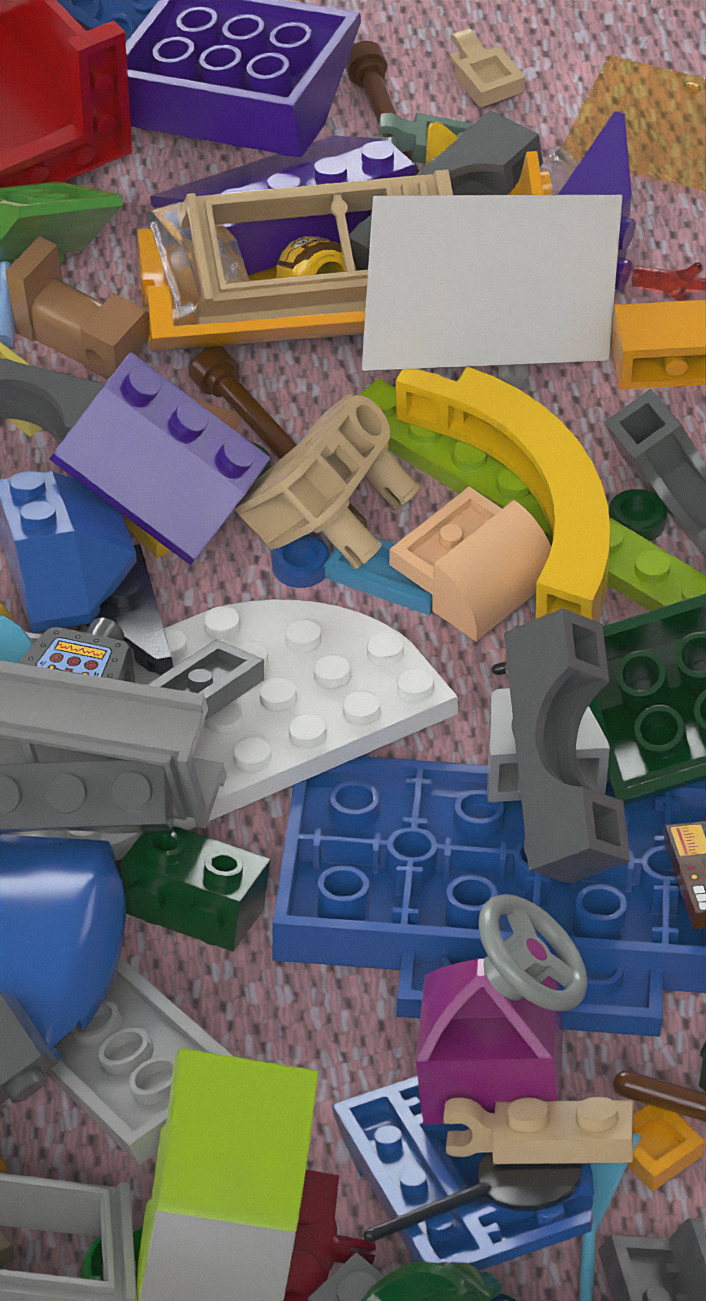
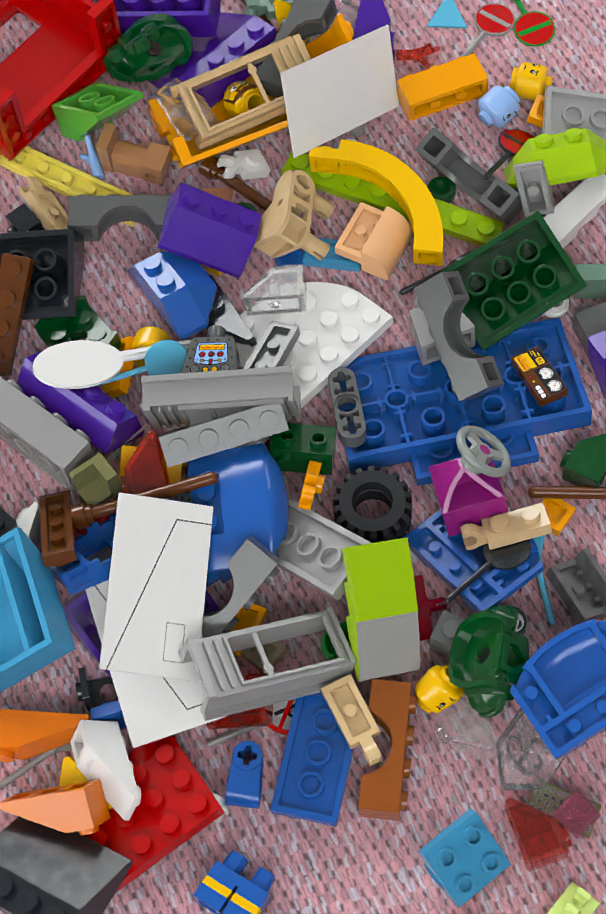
camera: 10 degrees left, 15 degrees up
(131, 150) = (130, 56): none -> dark green piece
(178, 948) = (312, 484): none -> light orange plate
(248, 595) = (277, 291): none -> clear slope
(282, 380) = (247, 163): none -> white plate
(299, 988) = (377, 486): none -> black tyre
(314, 850) = (343, 418): none -> dark grey beam

